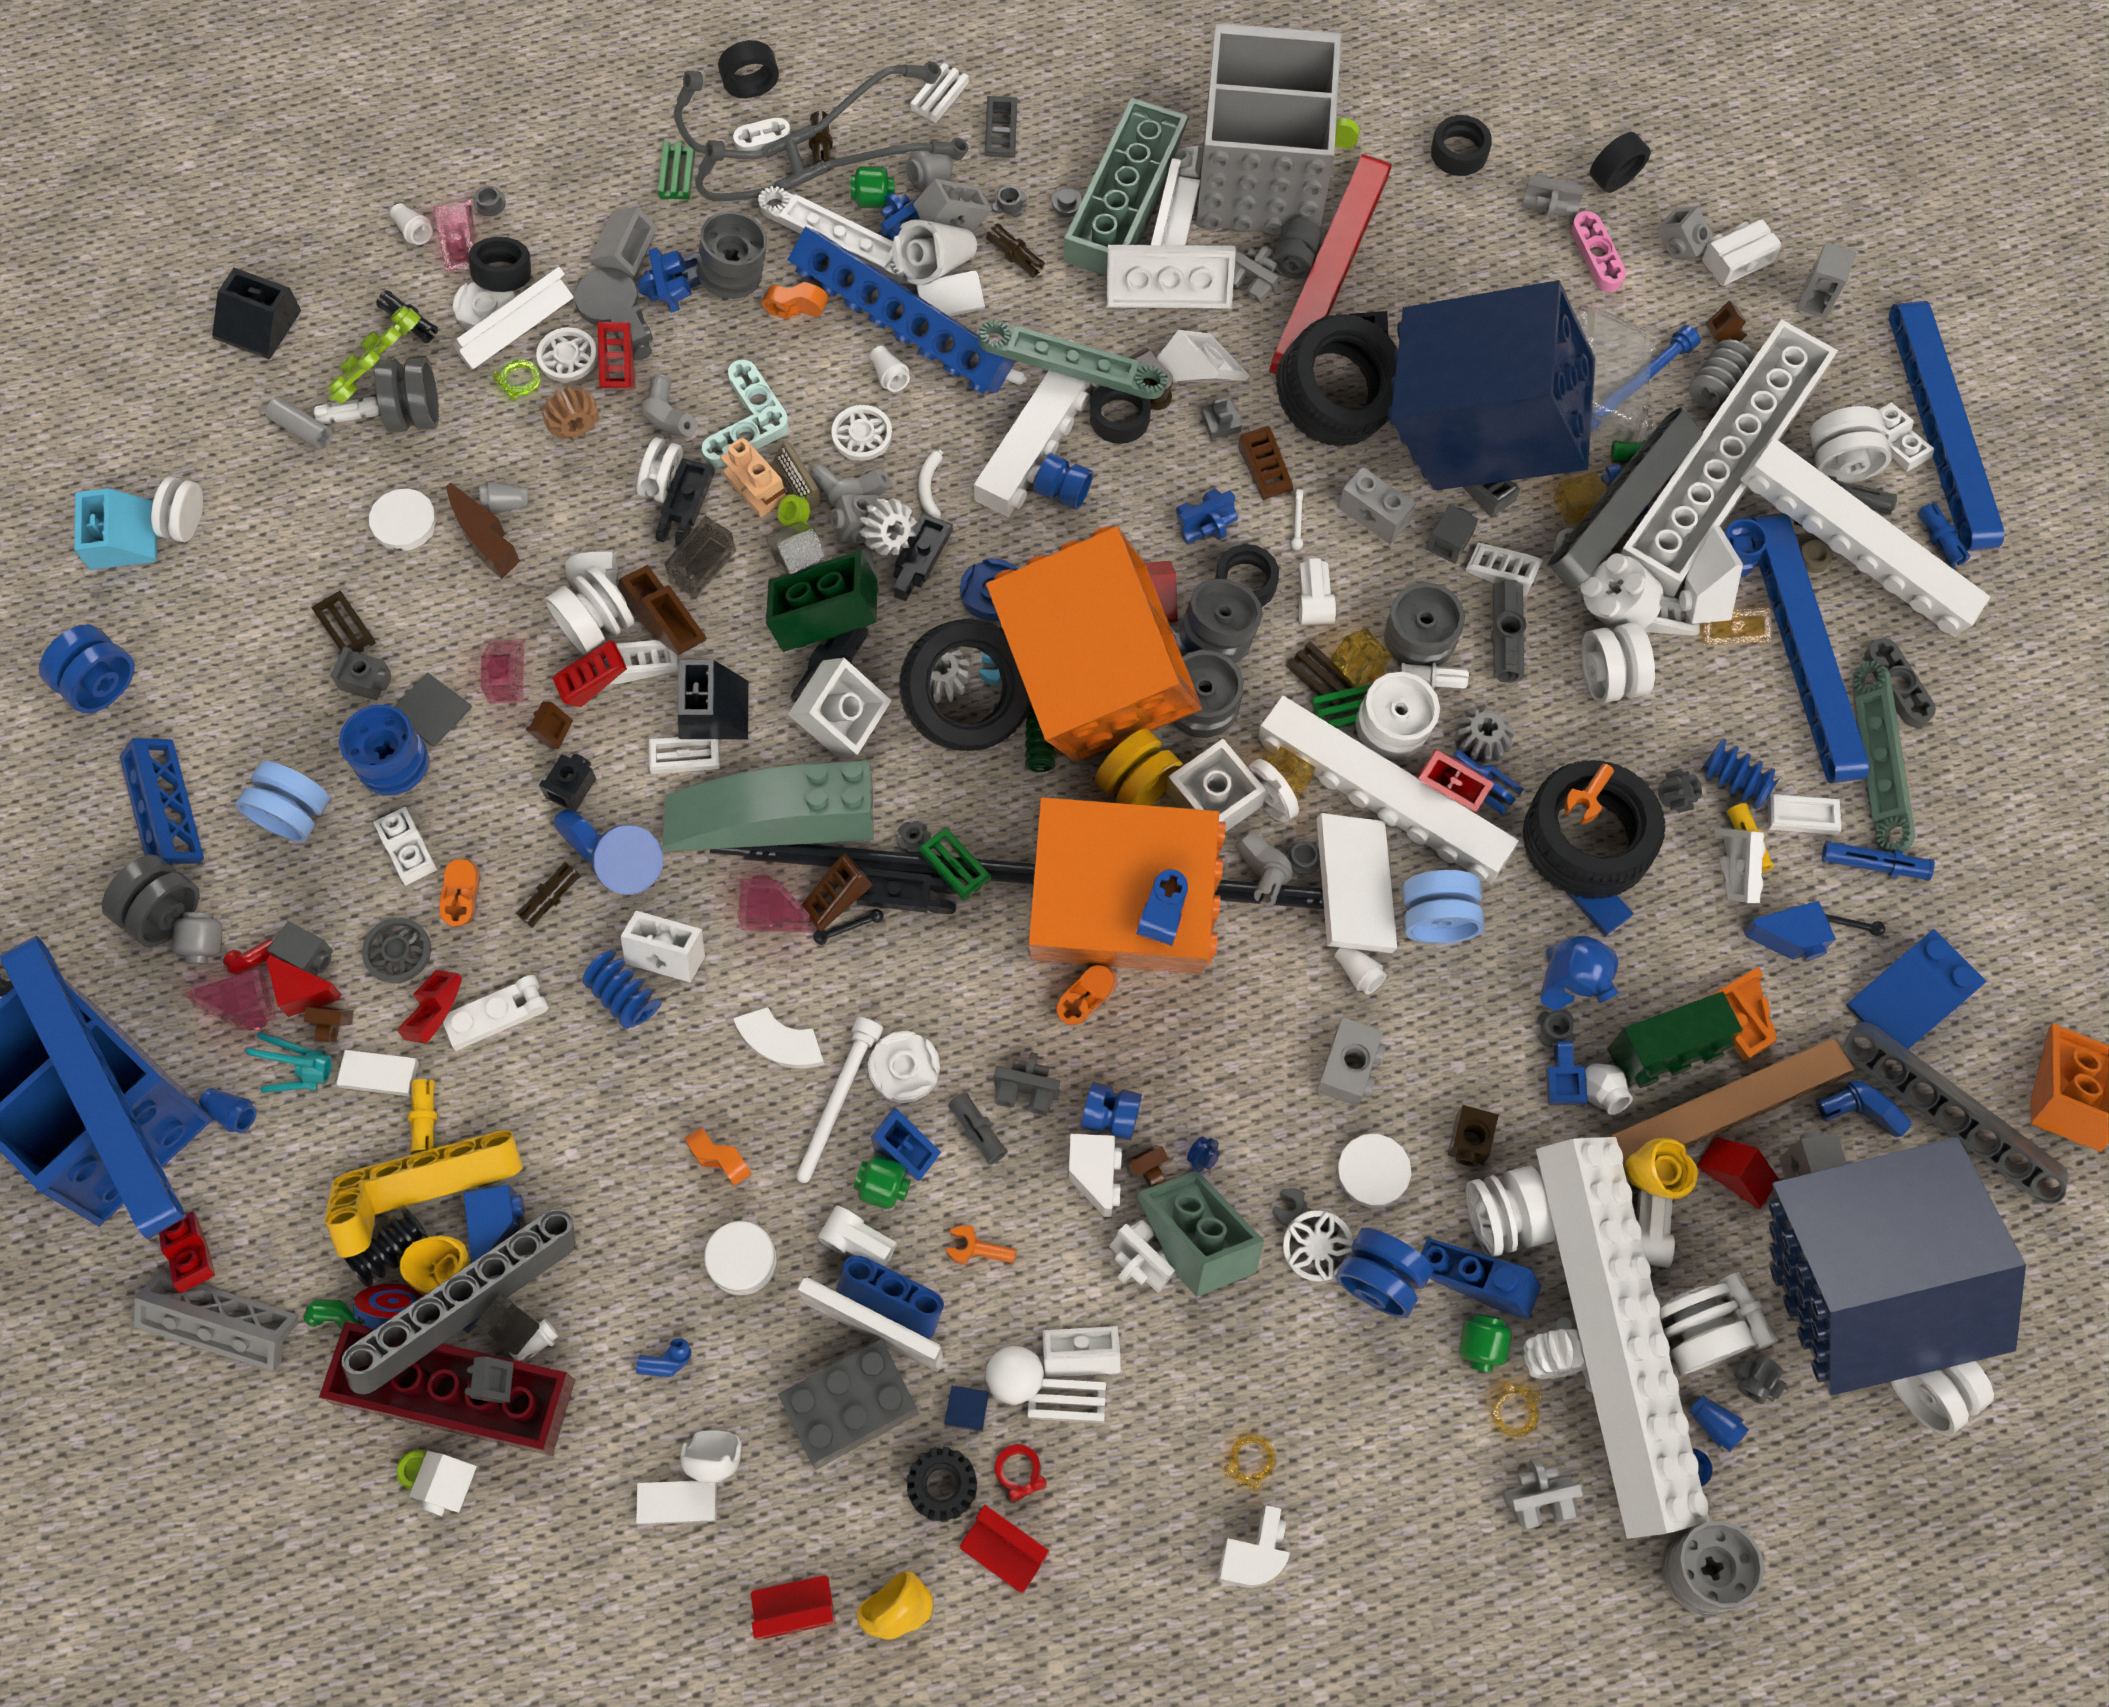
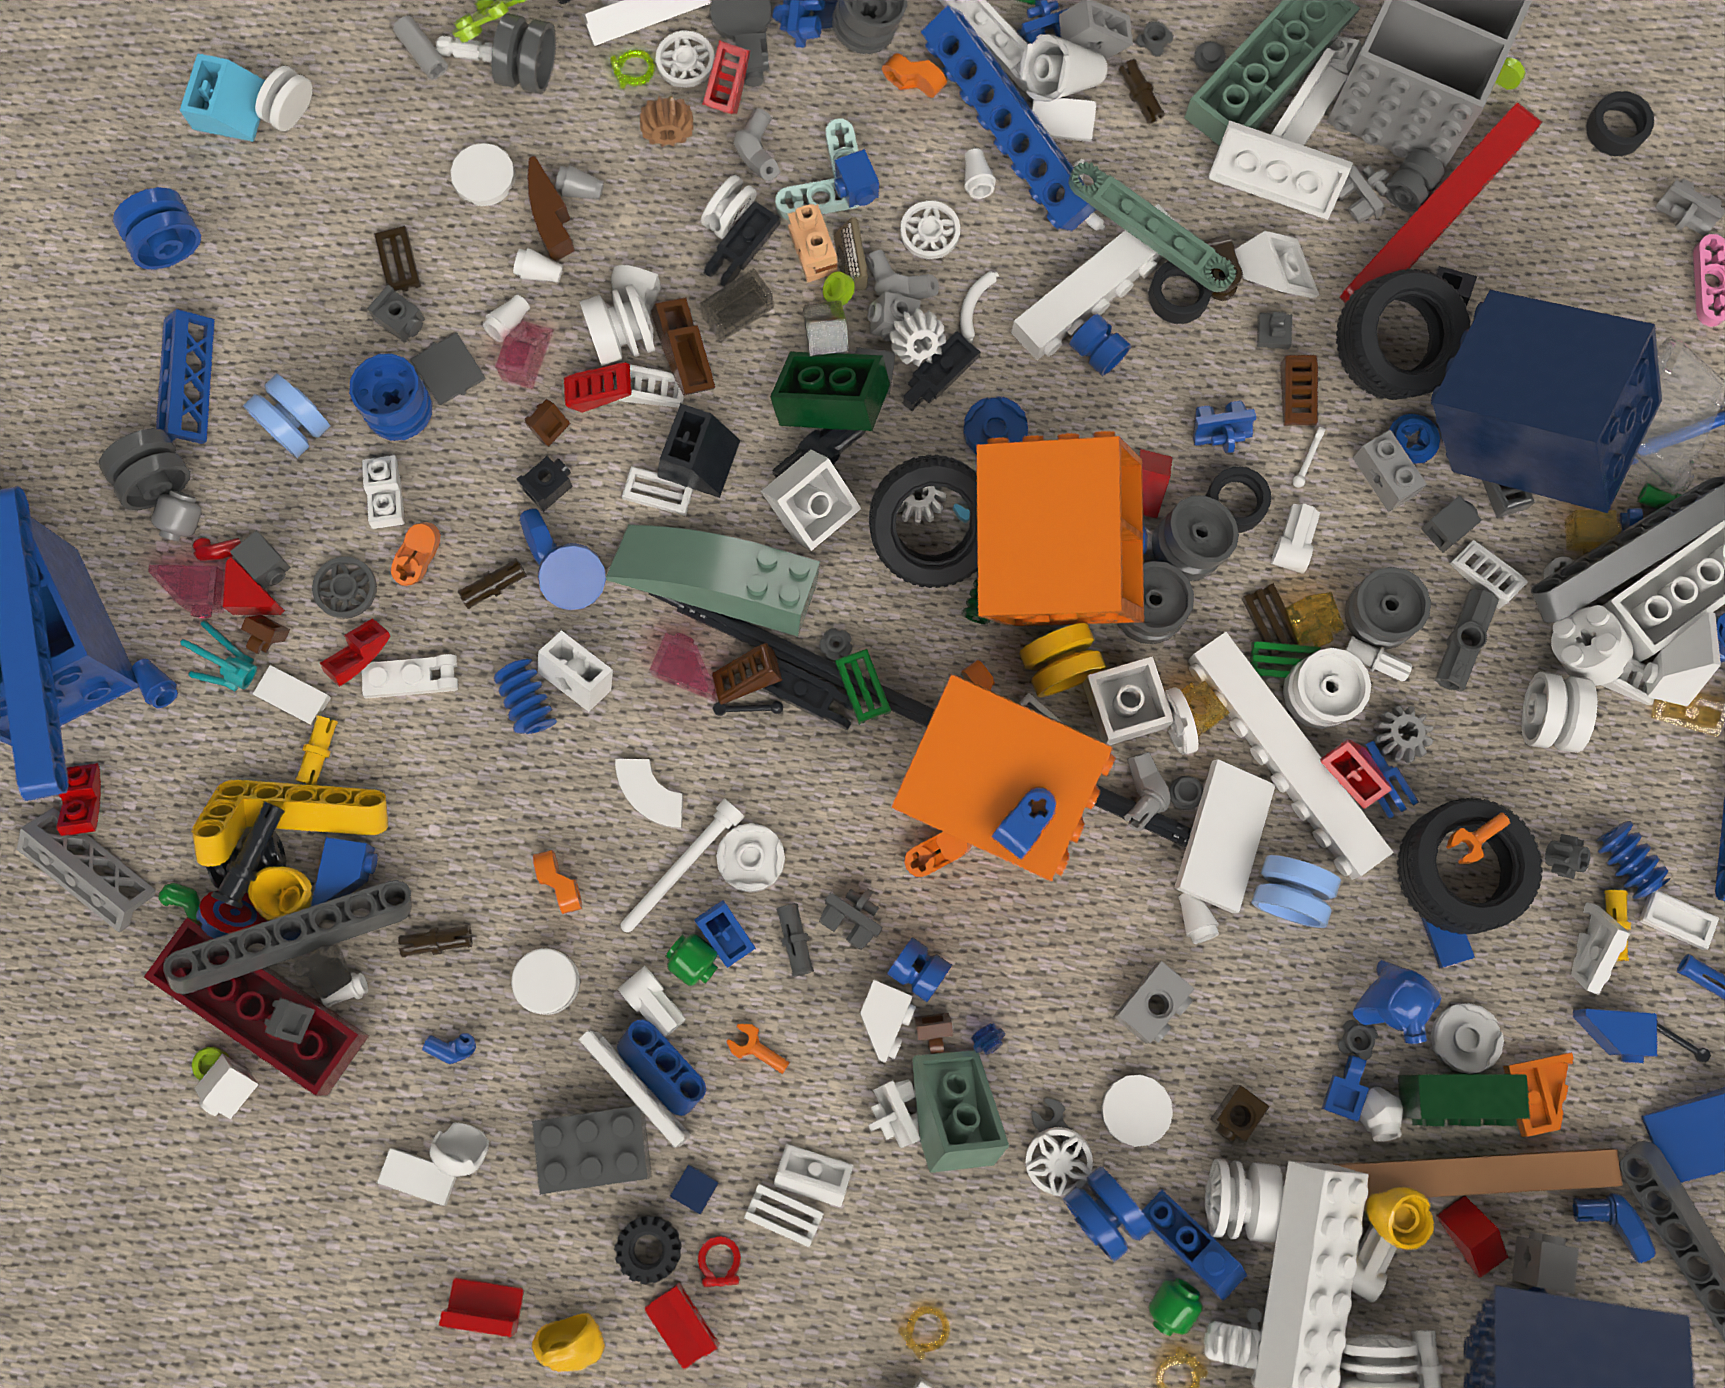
camera: 20 degrees right, 10 degrees up
(389, 1250) = (242, 871): none -> black pin
(473, 643) = (505, 318): none -> white cone
(487, 585) = (535, 266): none -> white cone
(612, 1260) = (435, 941): none -> dark brown pin
(775, 406) = (856, 179): none -> blue brick
(1014, 1375) = (745, 1177): white hair -> none
(1400, 468) = (1427, 438): none -> blue gear
(1647, 983) = (1455, 1041): none -> white tile

